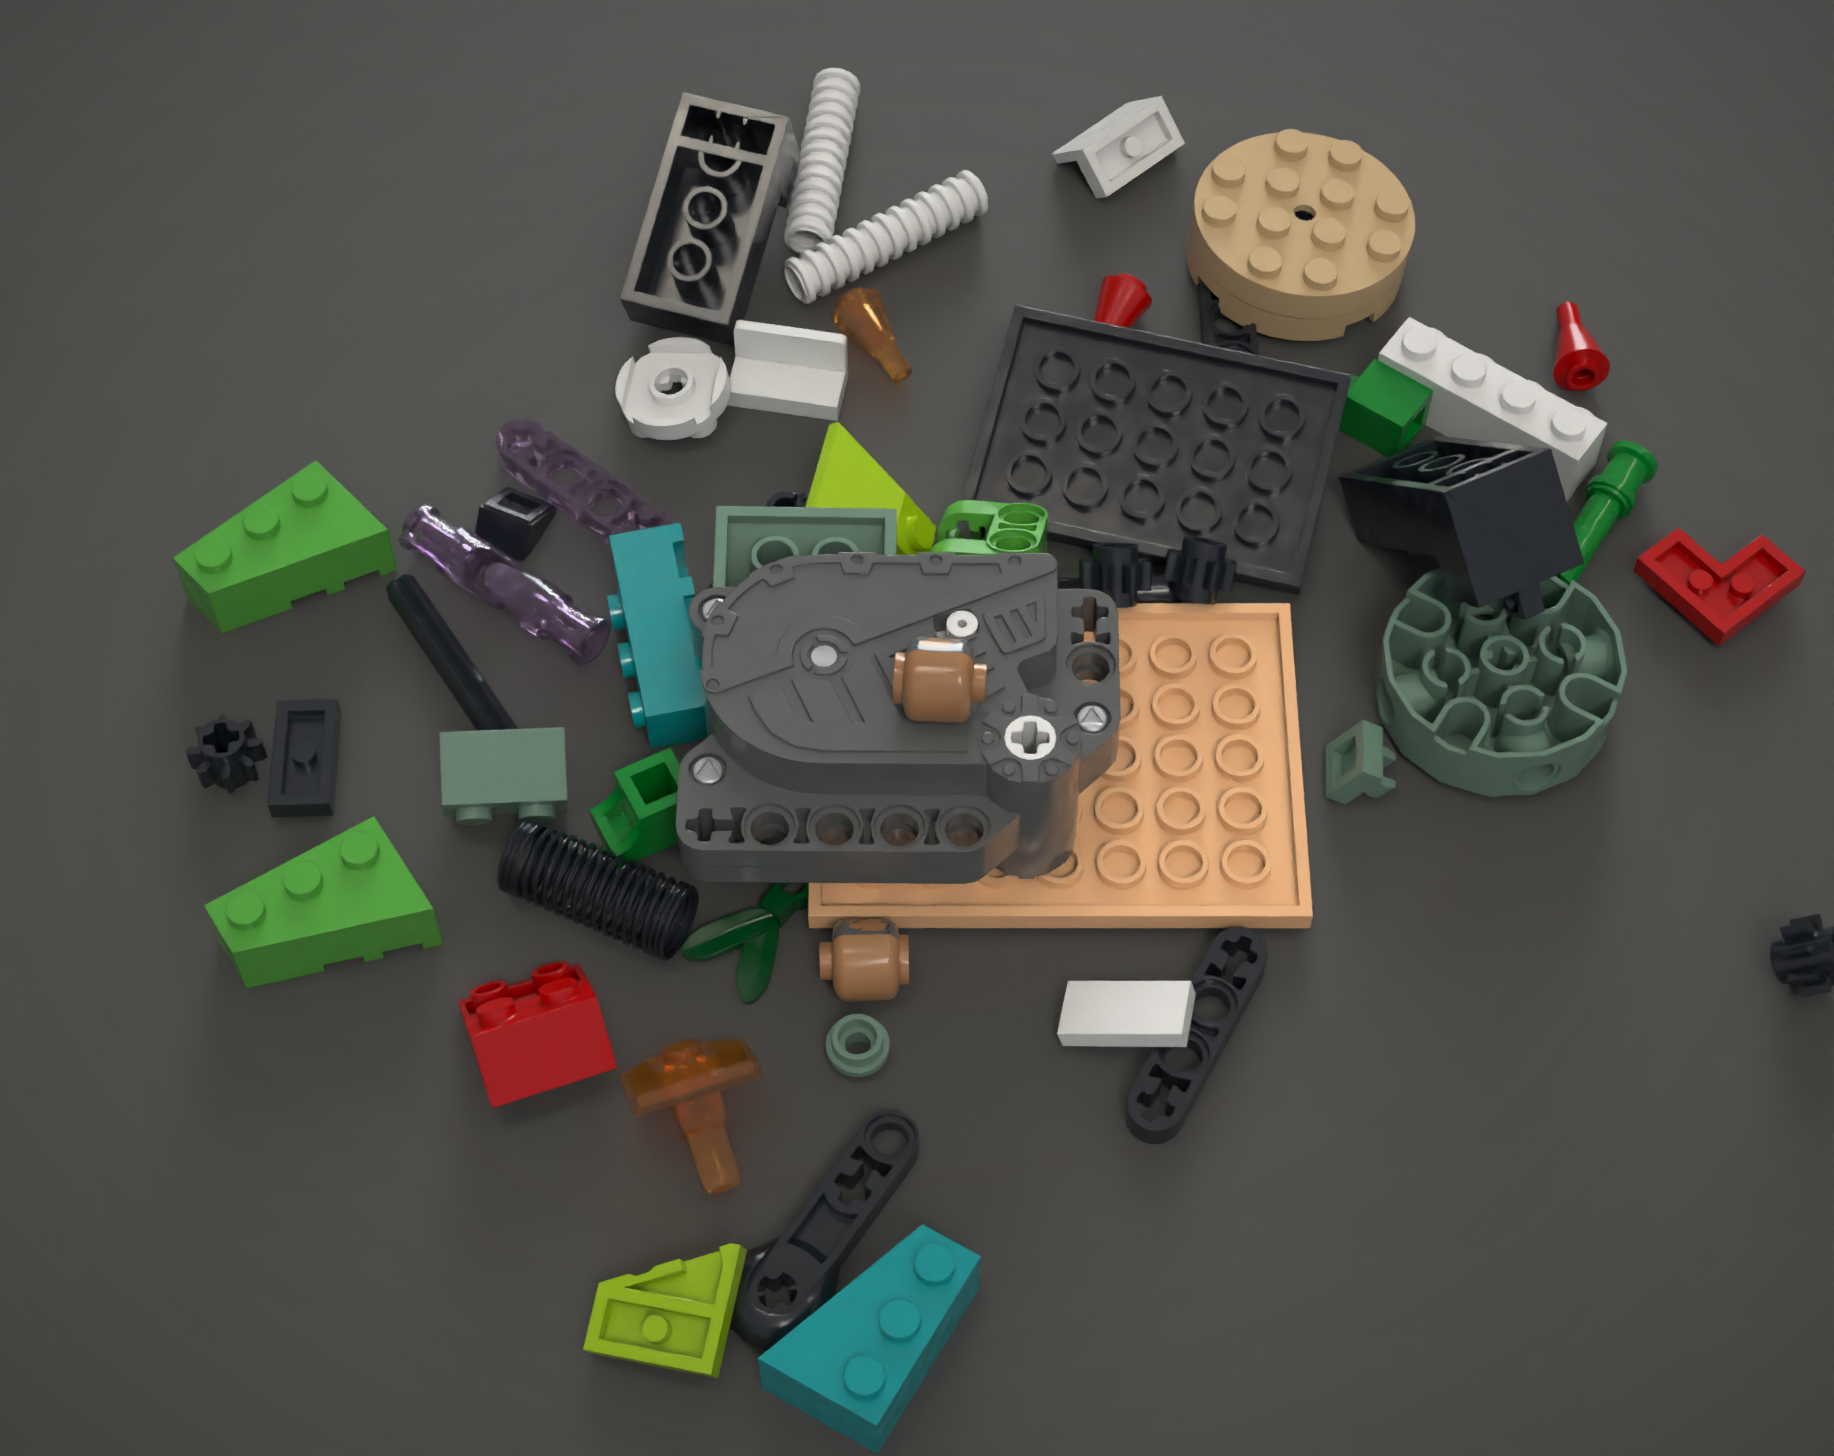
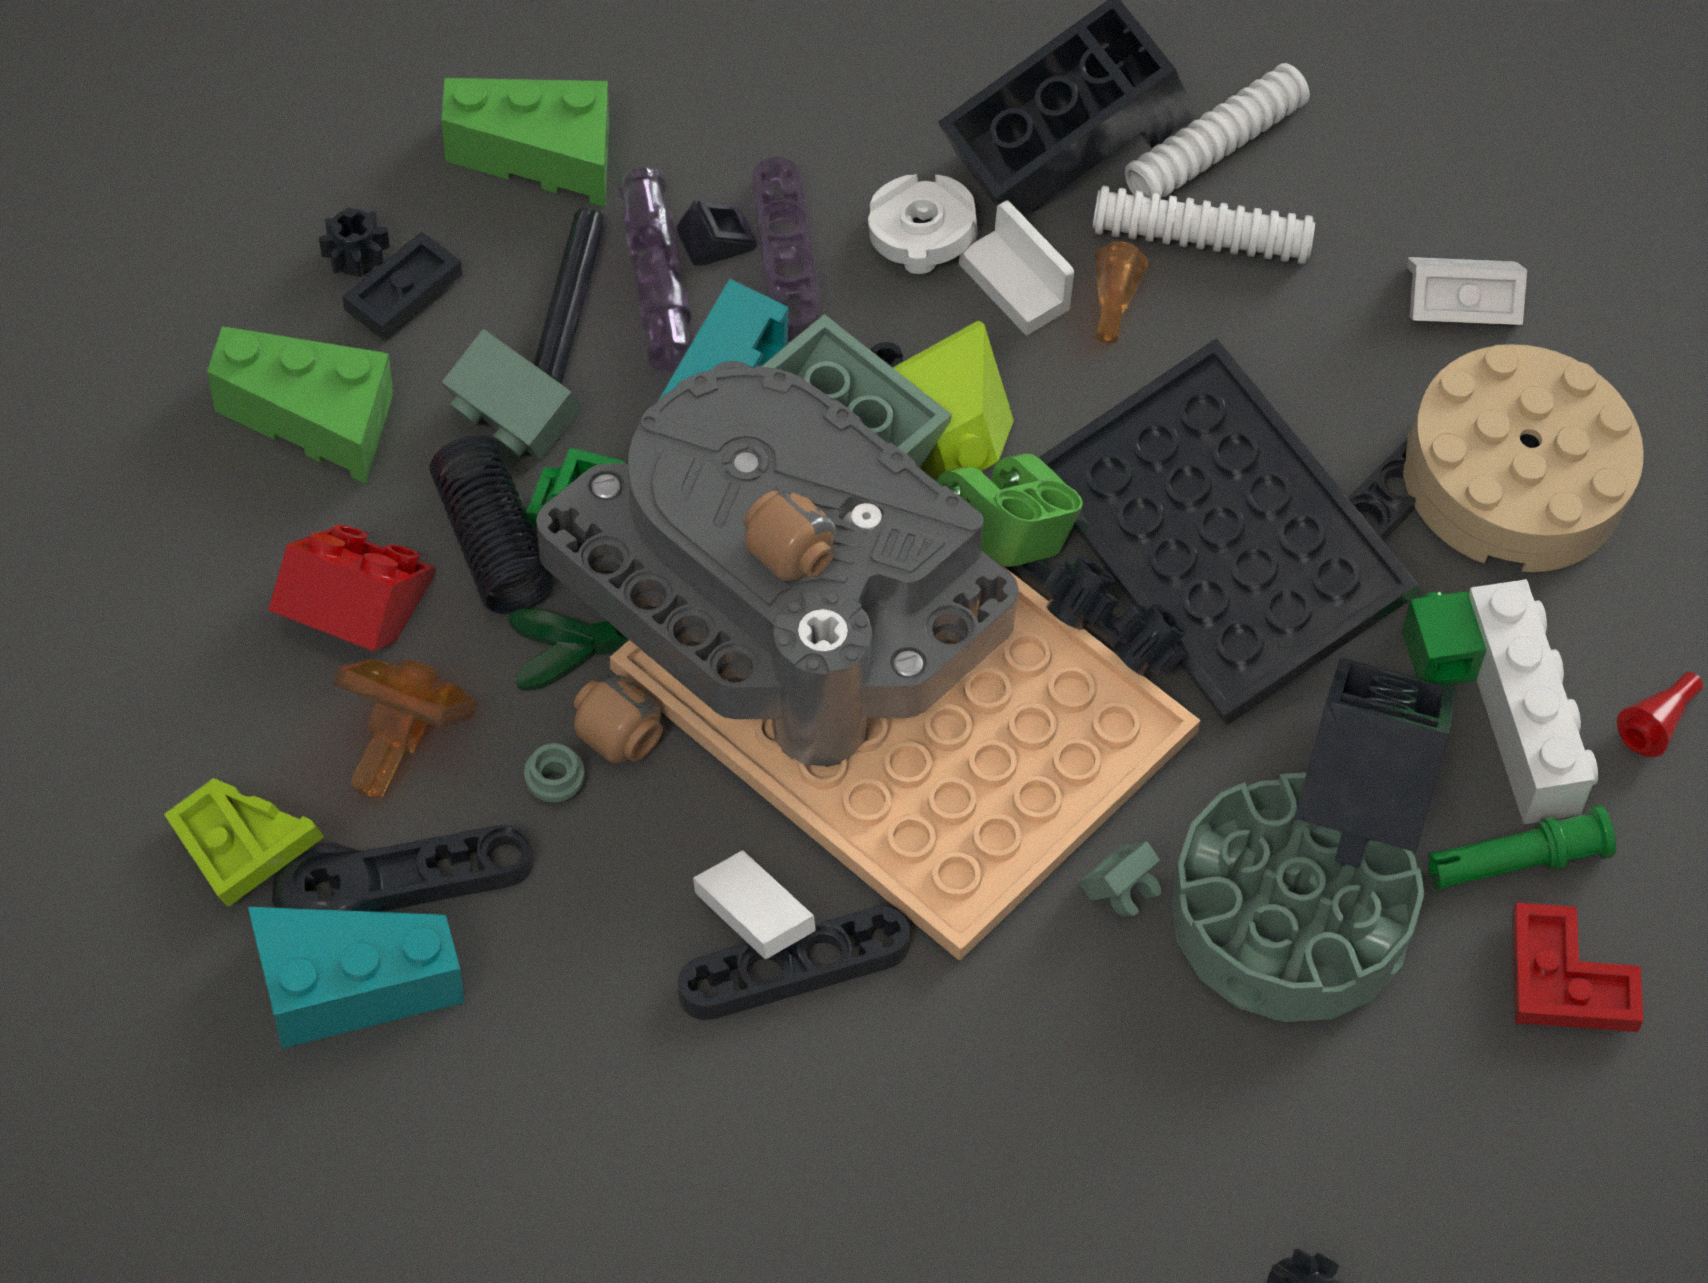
camera: 40 degrees right, 0 degrees up
(1122, 300) = (1322, 408): red cone -> none

